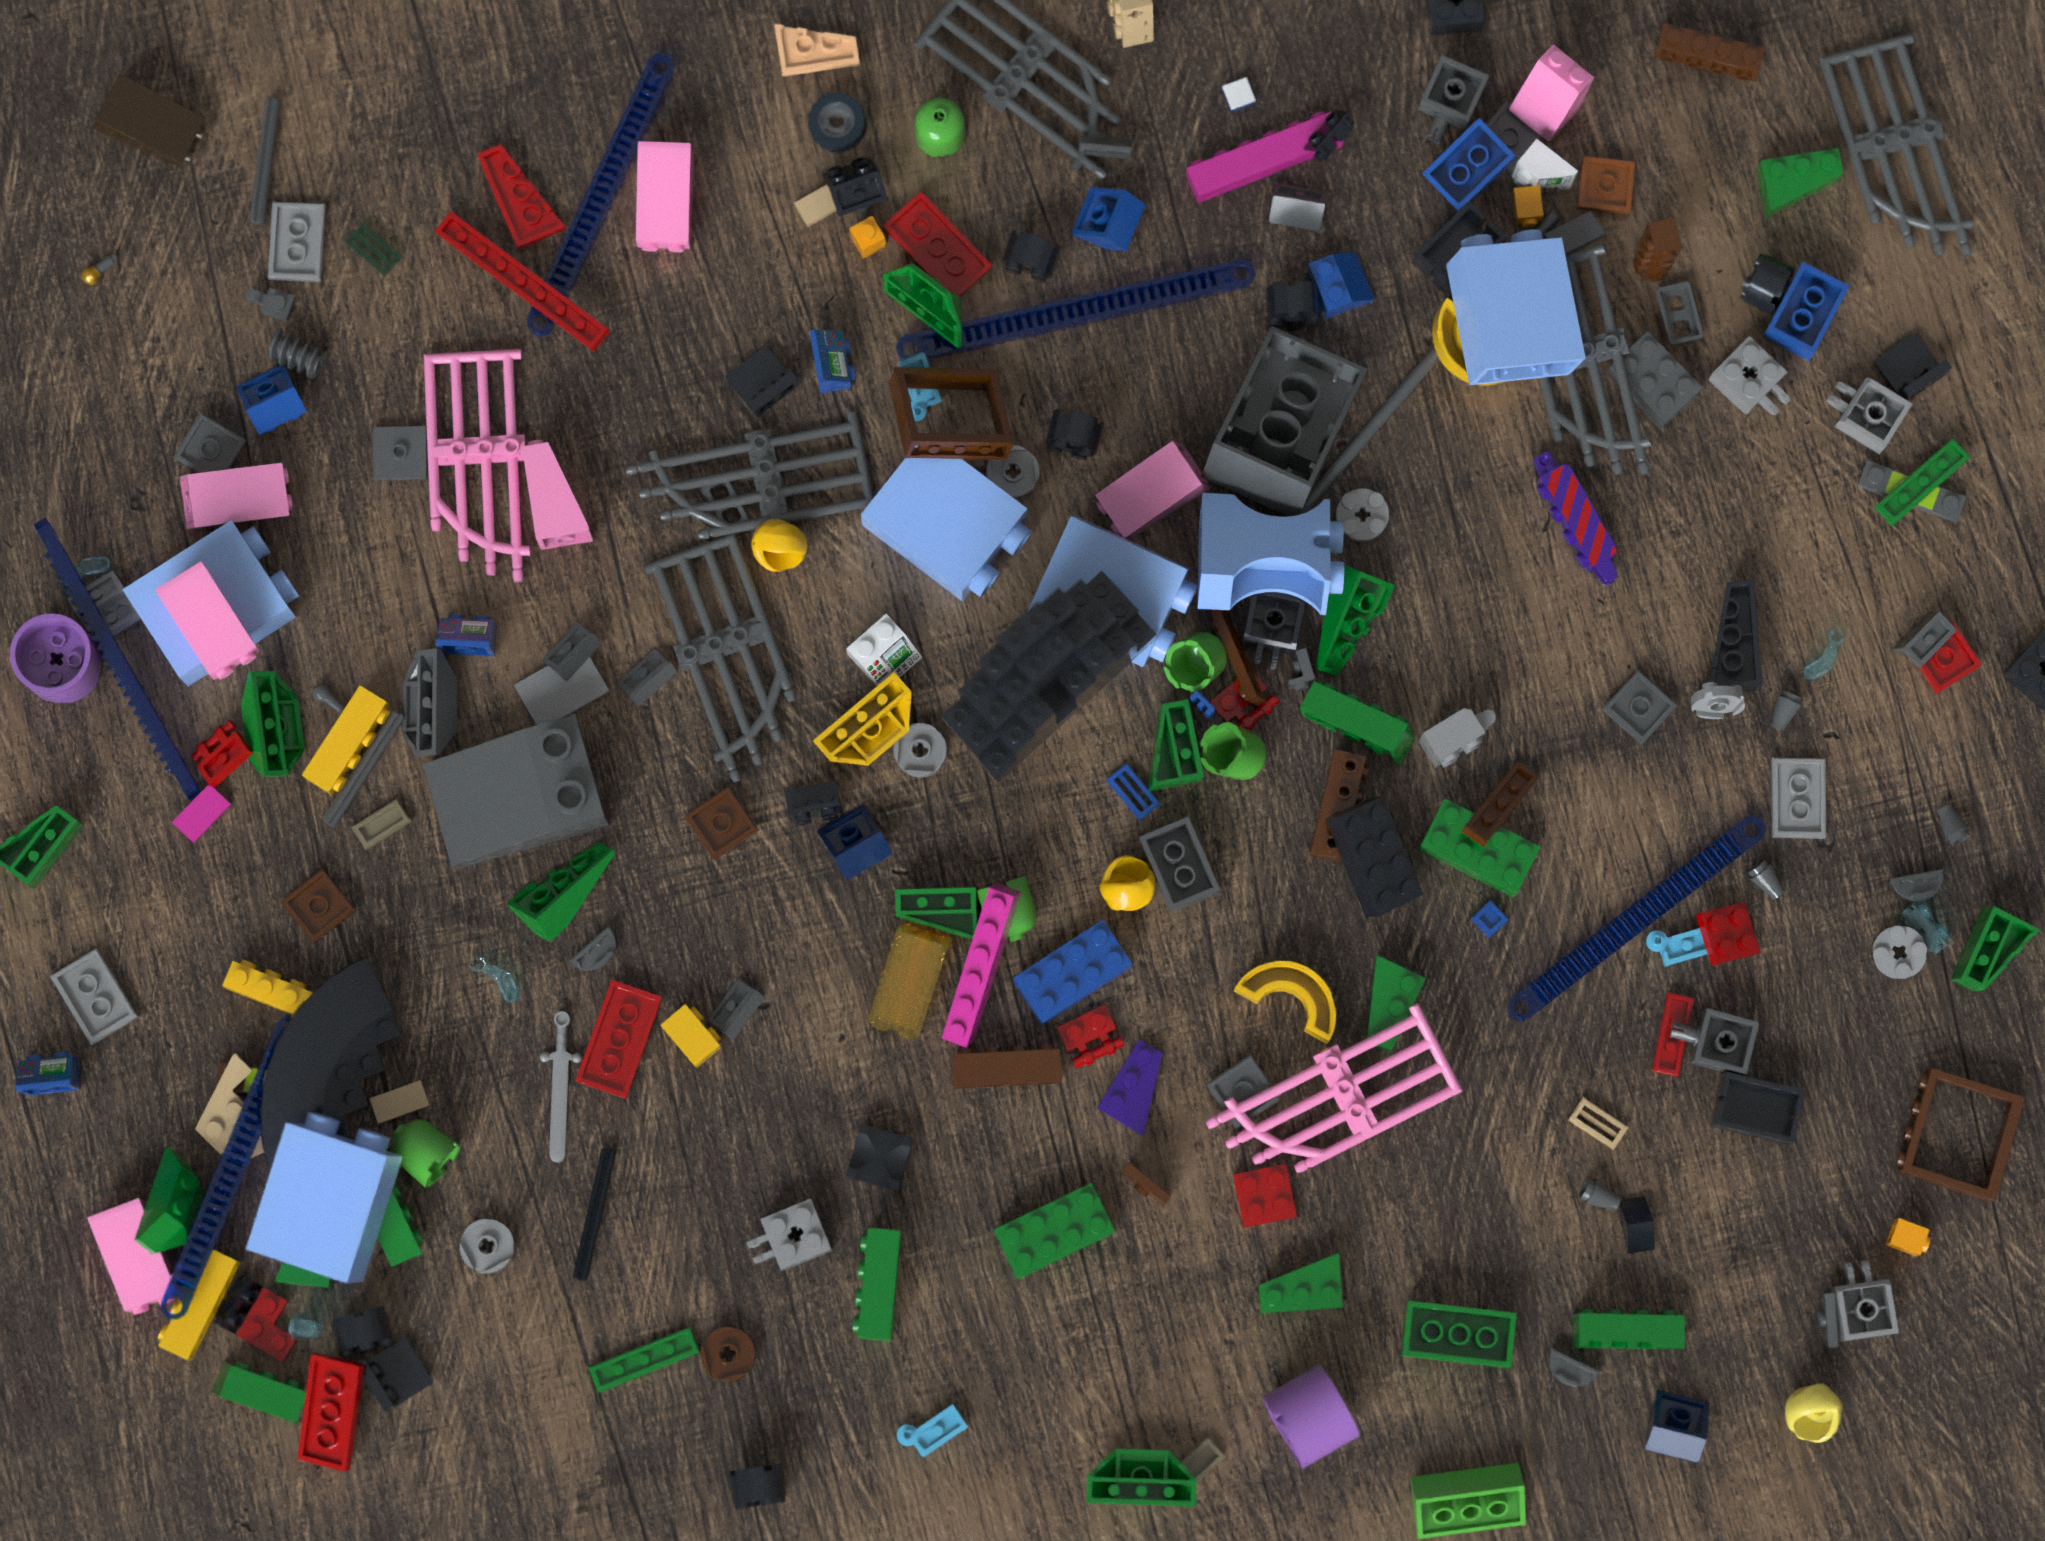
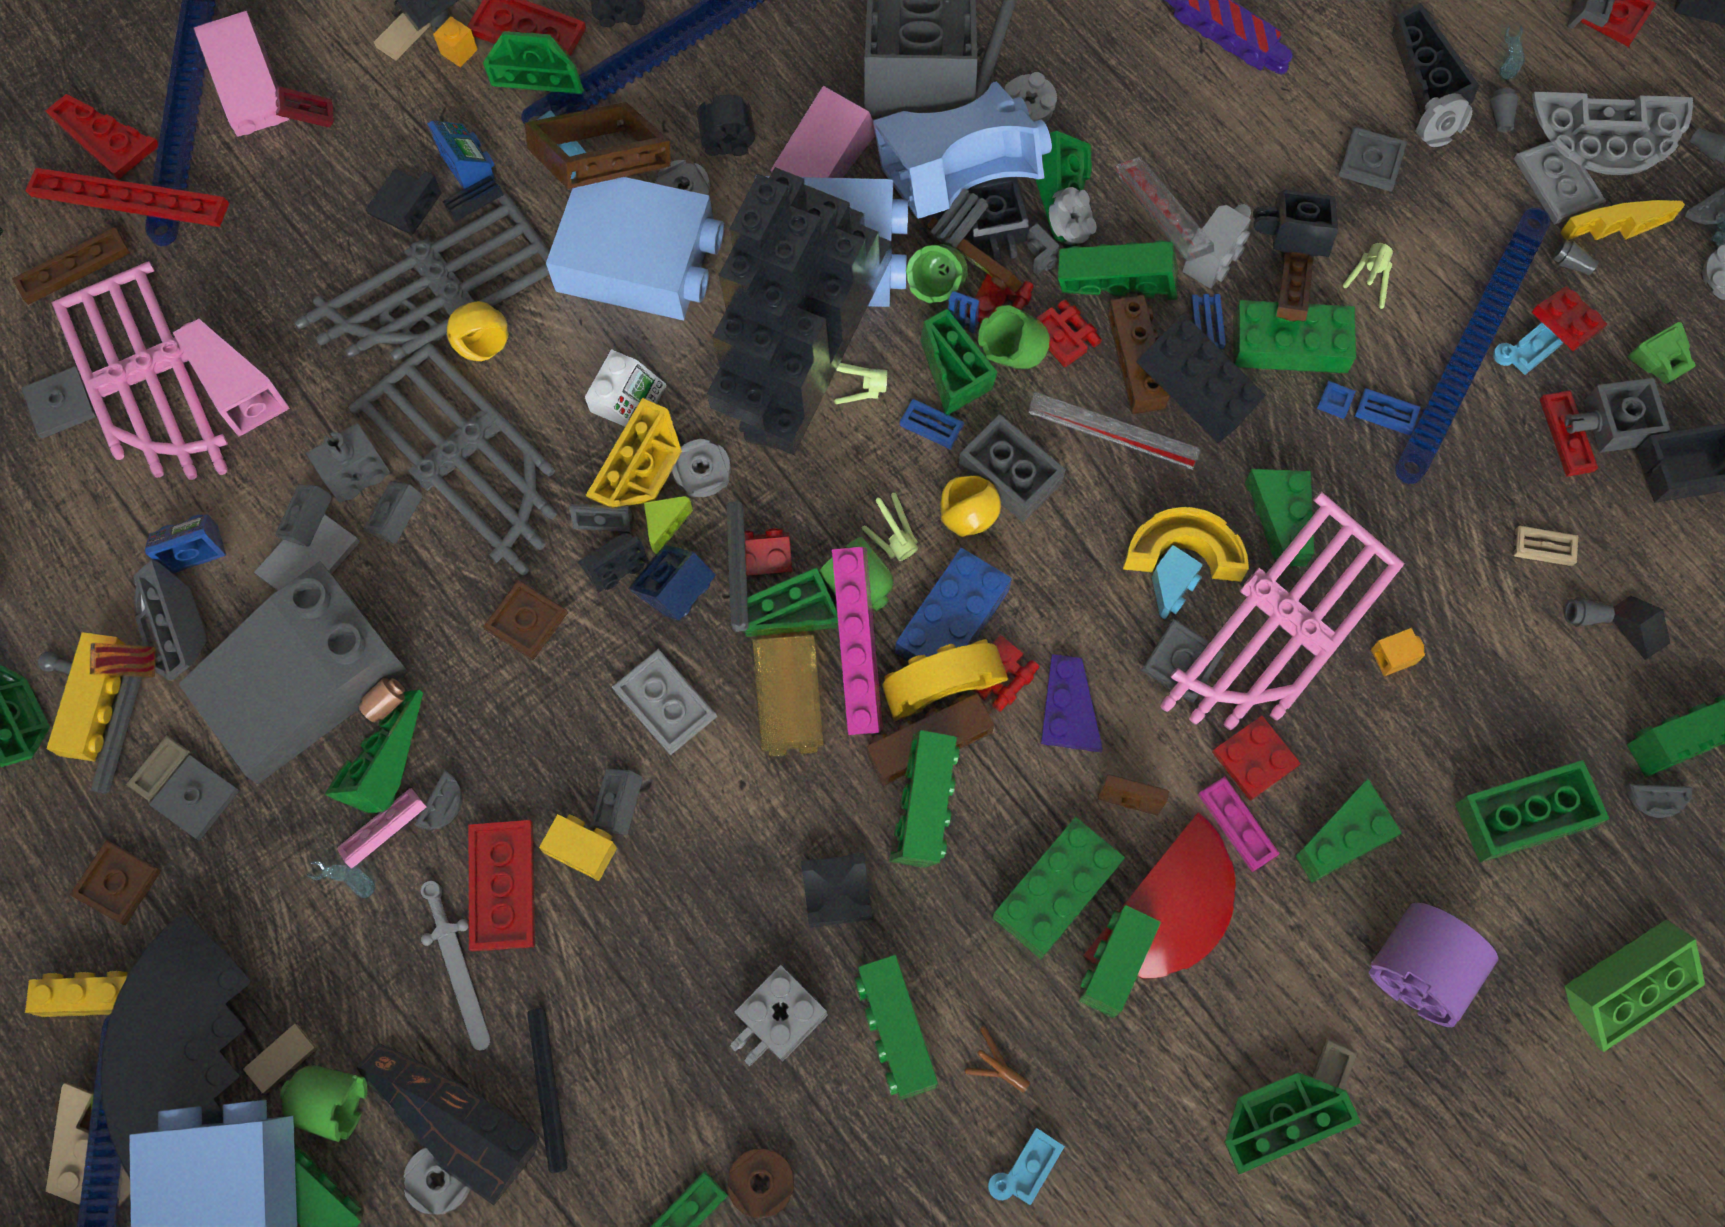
camera: 20 degrees left, 10 degrees down
(384, 724) = (122, 660): none -> tile
(401, 861) = (194, 797): none -> dark grey plate
(451, 323) = (71, 266): none -> reddish brown plate
(517, 1212) = (456, 1125): none -> black wedge
(541, 952) = (381, 828): none -> bright pink tile
(580, 844) = (382, 699): none -> nougat brick
(626, 625) = (348, 463): none -> dark grey brick
(689, 245) = (304, 111): none -> dark red tile
(807, 942) = (664, 702): none -> light grey tile
(818, 762) = (601, 517): none -> dark grey slope
(823, 401) = (473, 198): none -> black tile
(870, 784) = (665, 518): none -> lime slope
(911, 858) = (737, 567): none -> dark grey axle
(938, 847) = (768, 552): none -> red bracket
(946, 1350) = (999, 1064): none -> dark orange plant
(979, 1118) = (926, 800): none -> green wedge
(1040, 1024) = (941, 675): none -> yellow brick
(1058, 890) = (902, 543): none -> yellowish green plant
(1071, 1307) = (1118, 961): none -> green wedge
(1100, 730) = (873, 379): none -> yellowish green plant
(1140, 1287) = (1190, 896): none -> red brick
(1223, 1242) = (1238, 824): none -> dark pink tile
(1259, 617) = (954, 217): none -> dark grey tile
(1269, 1018) = (1172, 578): none -> medium azure slope
(1278, 759) = (1064, 342): none -> red plate
(1283, 866) = (1114, 431): none -> clear tile
(1350, 659) = (1082, 223): none -> light grey plate
(1420, 683) = (1164, 209): none -> clear tile
(1423, 778) = (1206, 301): none -> blue tile
(1424, 1160) = (1398, 651): none -> light orange brick
(1511, 932) = (1387, 416): none -> blue tile
(1535, 746) = (1299, 222): none -> black hinge
(1591, 807) = (1377, 261): none -> yellowish green plant
(1793, 996) = (1658, 351): none -> bright green piece
(1836, 863) = (1627, 218): none -> yellow slope
(1865, 777) = (1613, 133): none -> light grey brick

